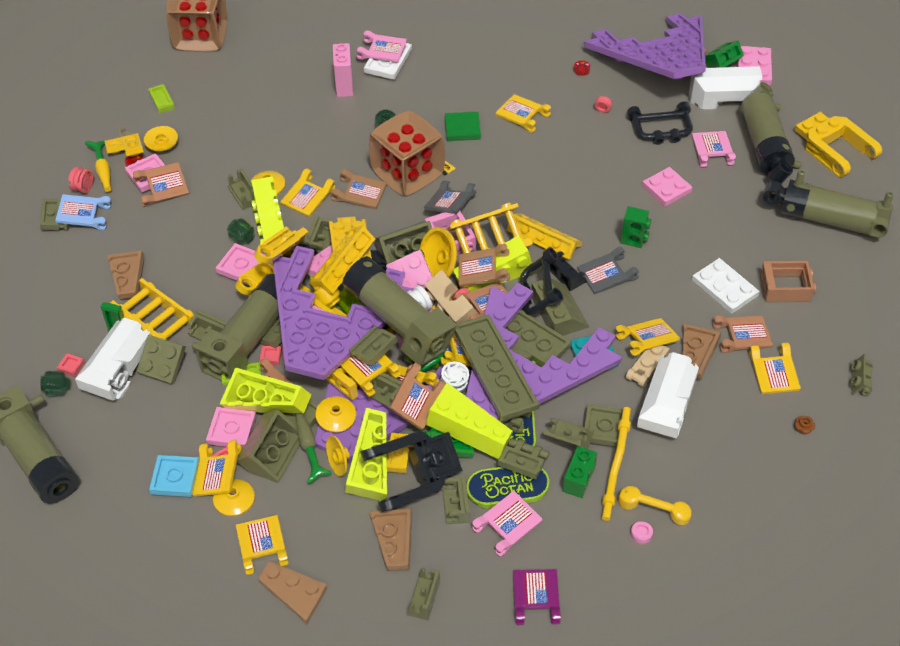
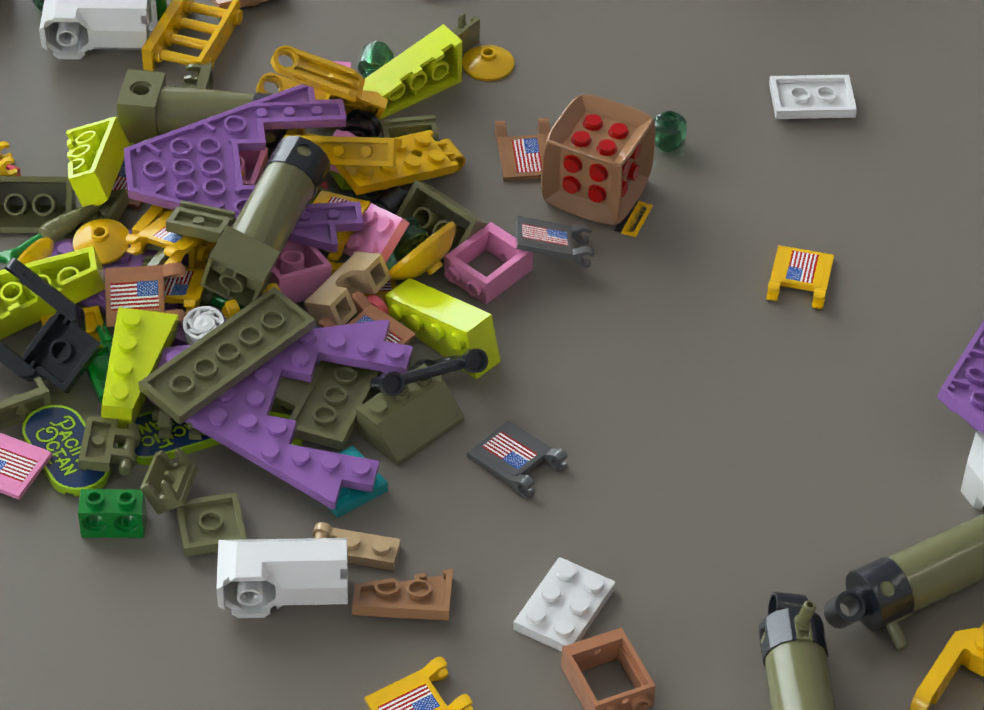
camera: 65 degrees right, 5 degrees down
(161, 359) = (116, 60): olive plate -> none
(230, 425) = (44, 157): bright pink plate -> none
(305, 196) = (488, 103): yellow flag -> none
(342, 69) = (741, 68): bright pink window -> none
(382, 47) = (824, 83): bright pink flag -> none
(421, 296) = (306, 243): white wheel -> none
(462, 126) = (725, 218): green tile -> none
(481, 266) = (418, 296): medium nougat flag -> none
(505, 209) = (511, 337): yellow fence -> none
(545, 235) = (541, 361): yellow fence -> none
(566, 273) = (486, 406): black hinge -> none
(581, 68) = (950, 316): red tile -> none
(603, 104) = (874, 358): coral tile -> none
(609, 498) = (82, 561): yellow bar -> none
(631, 496) = (90, 642): yellow piece -> none
(635, 227) = (607, 454): green brick -> none
(641, 532) = (43, 613): bright pink tile -> none
(647, 334) = (406, 531): yellow flag -> none
(658, 136) = (846, 445): black bar -> none
(667, 186) = (742, 485): bright pink plate -> none
(713, 144) = (875, 519): bright pink flag -> none
(744, 332) = (478, 654): nougat flag -> none

